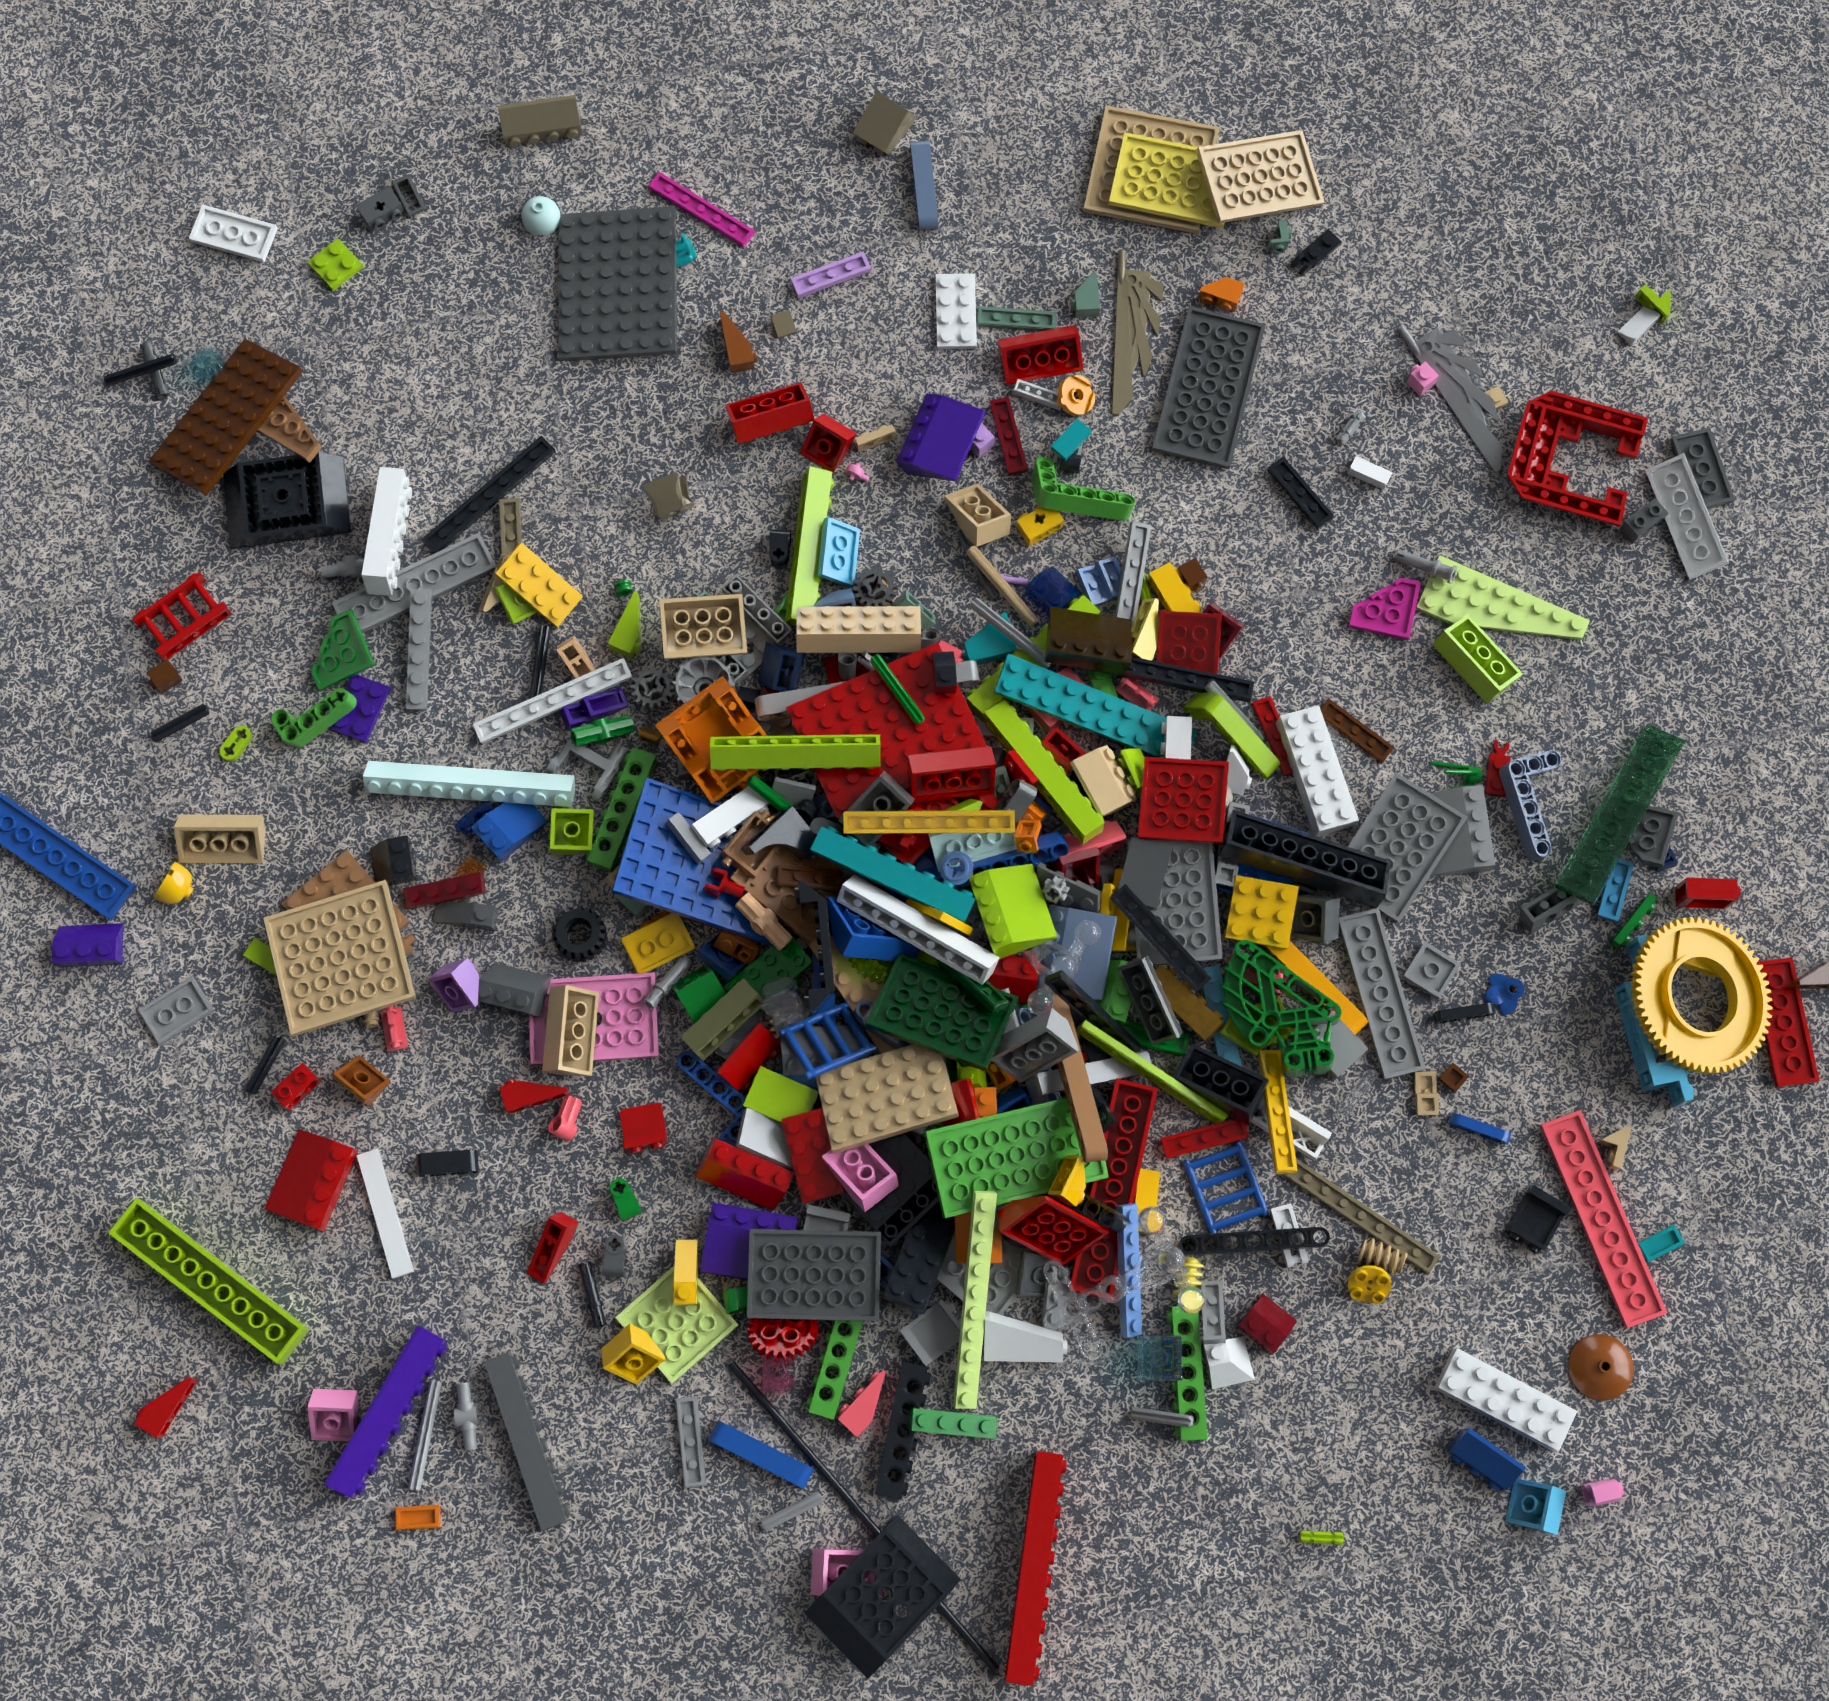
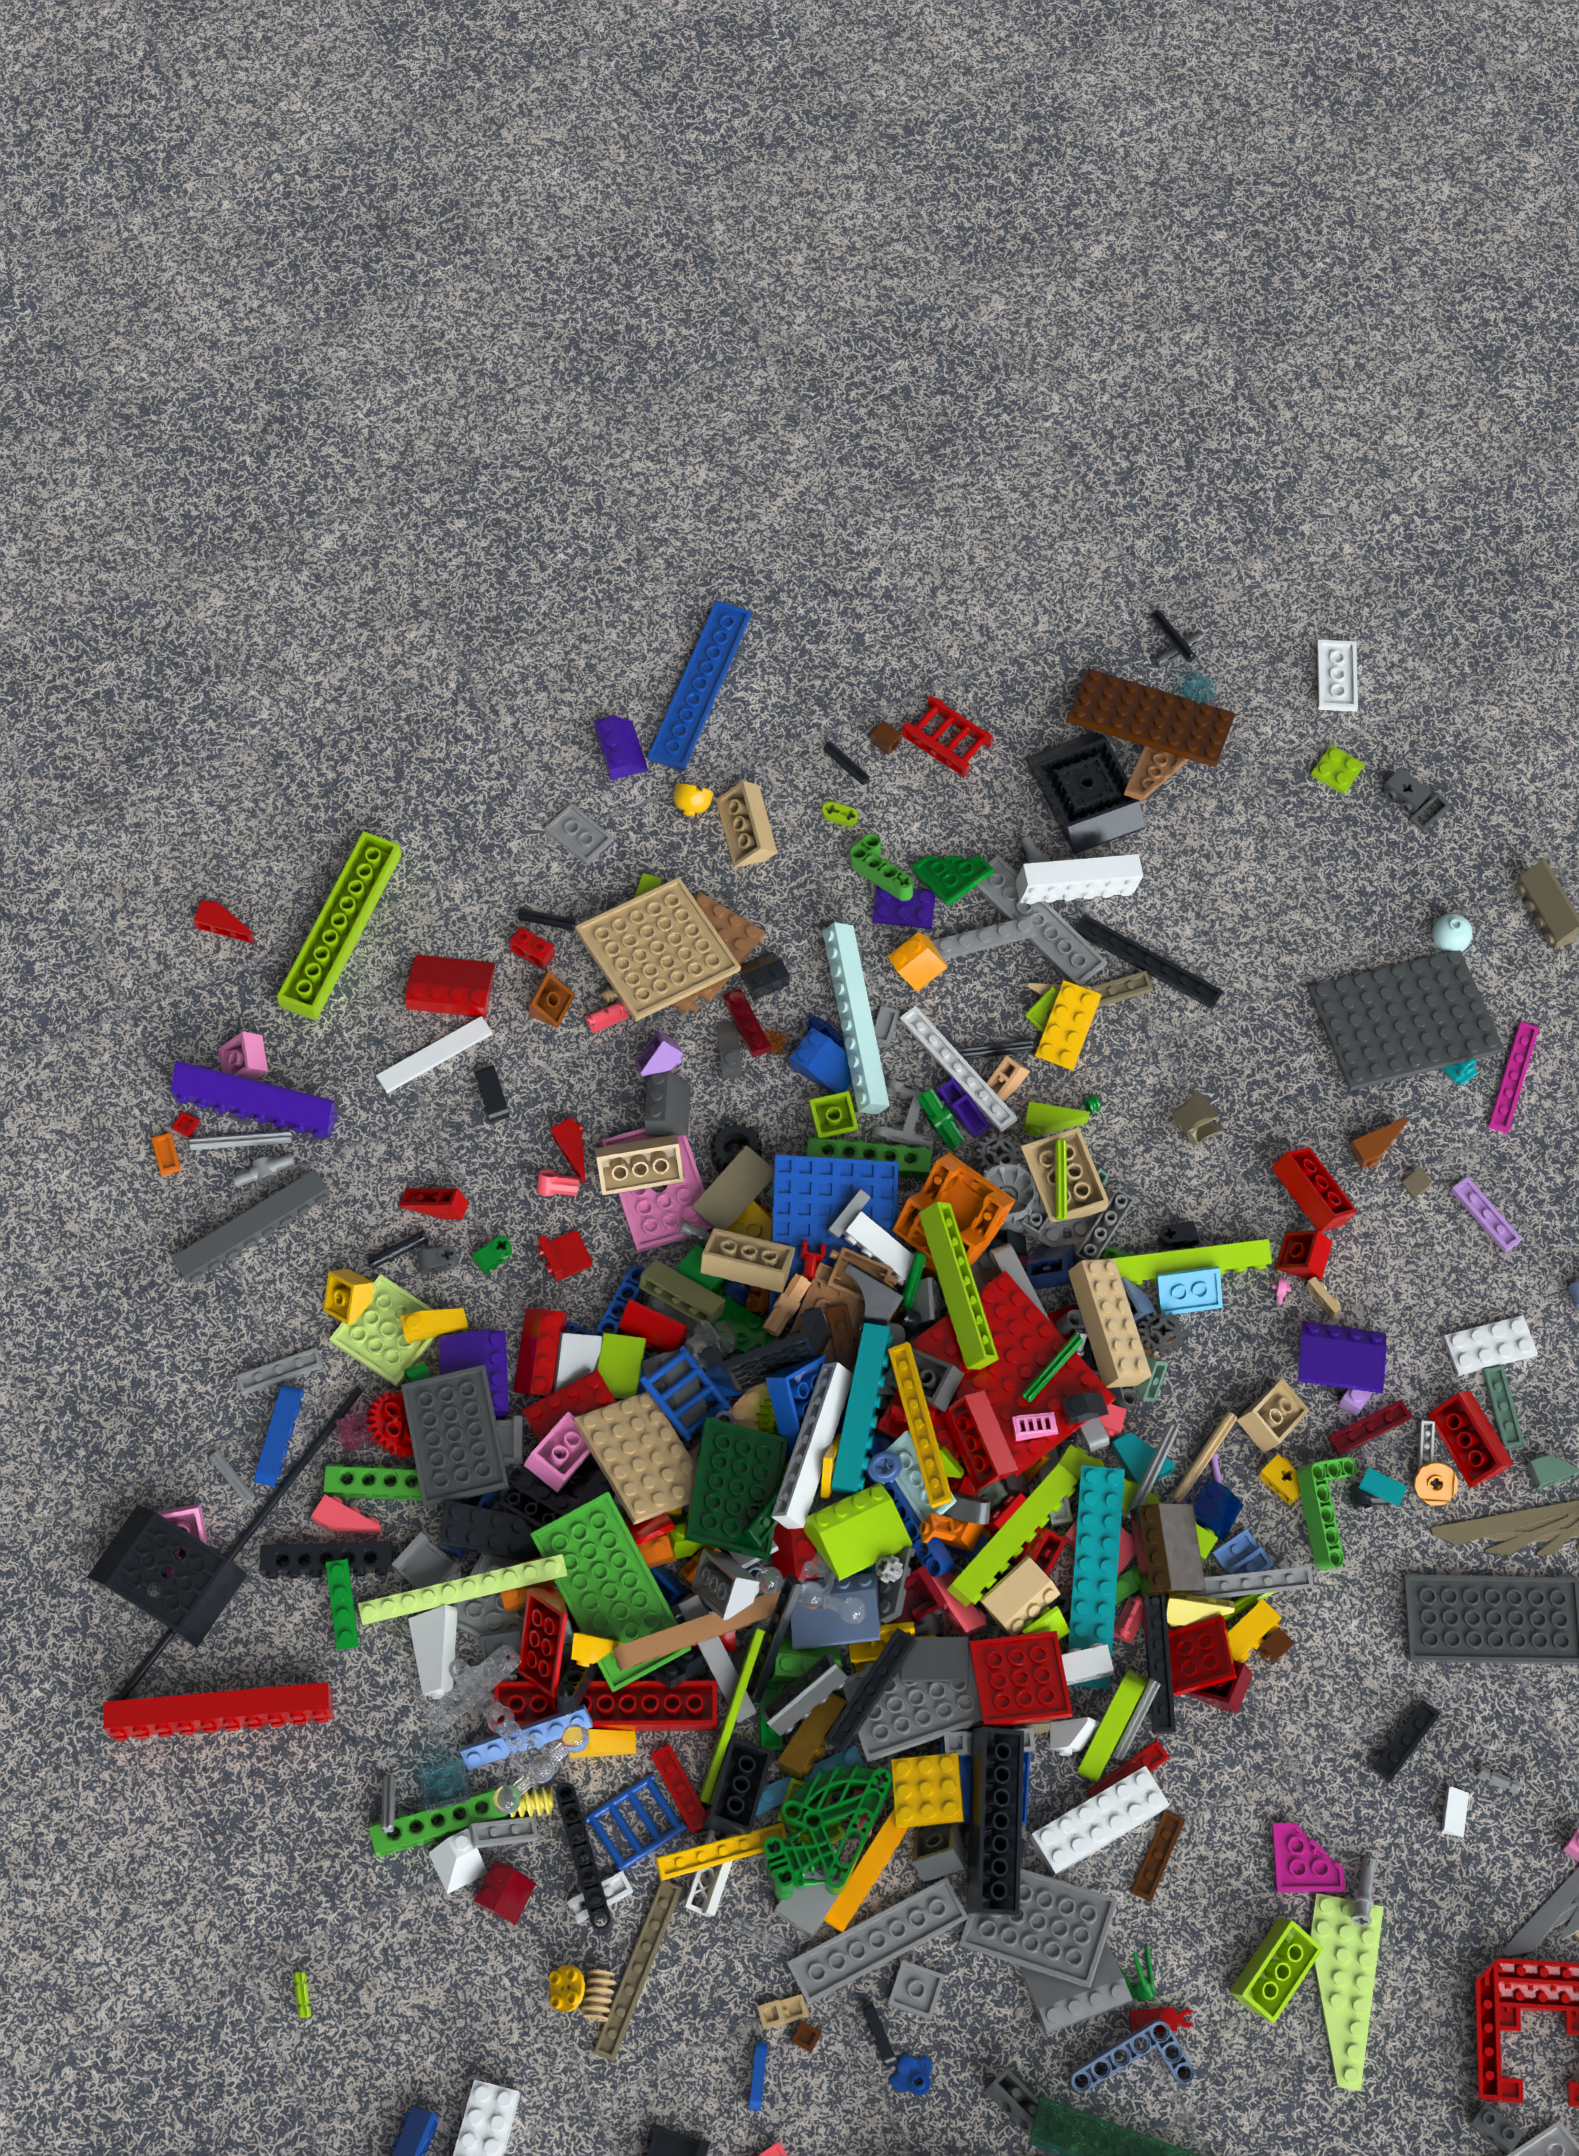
camera: 75 degrees right, 10 degrees down
(390, 1490) = (185, 1124): none -> red tile
(427, 708) = (918, 961): none -> light orange slope
(482, 758) = (885, 1025): none -> light grey tile
(624, 944) = (734, 1189): none -> dark tan tile
(709, 630) = (1060, 1180): none -> lime axle
(710, 945) = (747, 1260): none -> tan slope
(949, 737) = (1027, 1434): none -> bright pink slope

